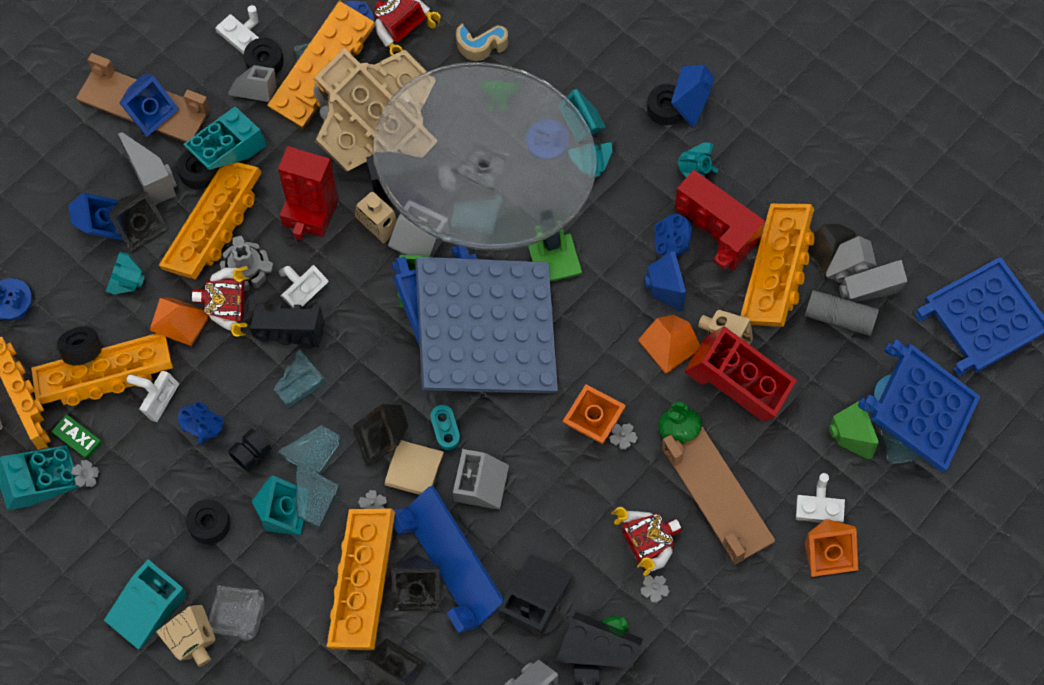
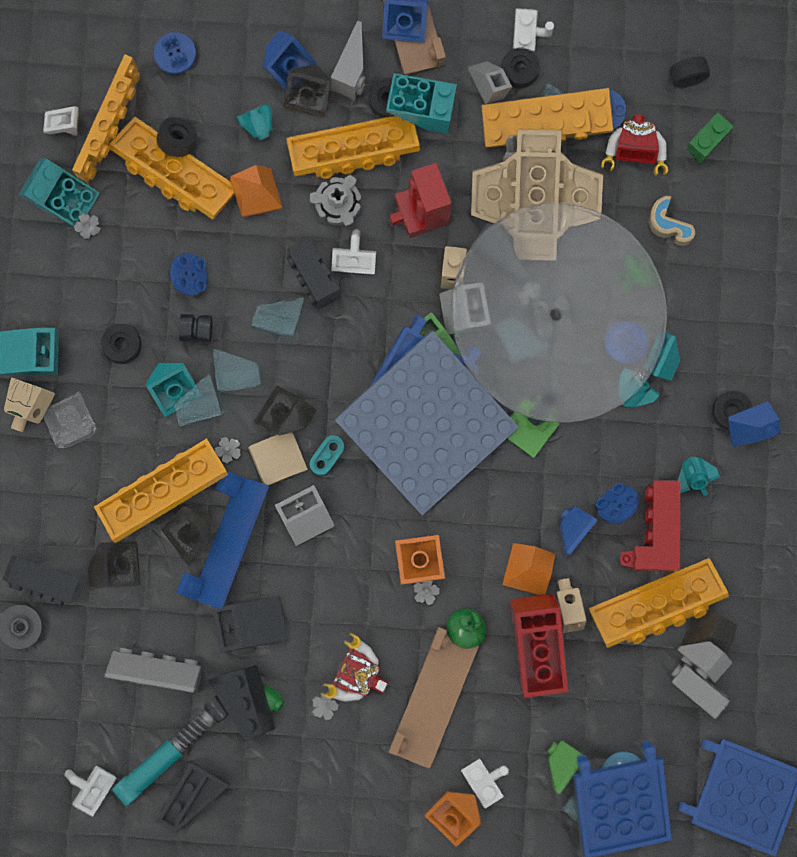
camera: 50 degrees right, 15 degrees up
(76, 437) = (110, 194): green tile -> none
(158, 395) = (184, 226): white plate -> none
(224, 298) = (294, 212): torso -> none
(841, 312) = (658, 687): light grey piece -> none

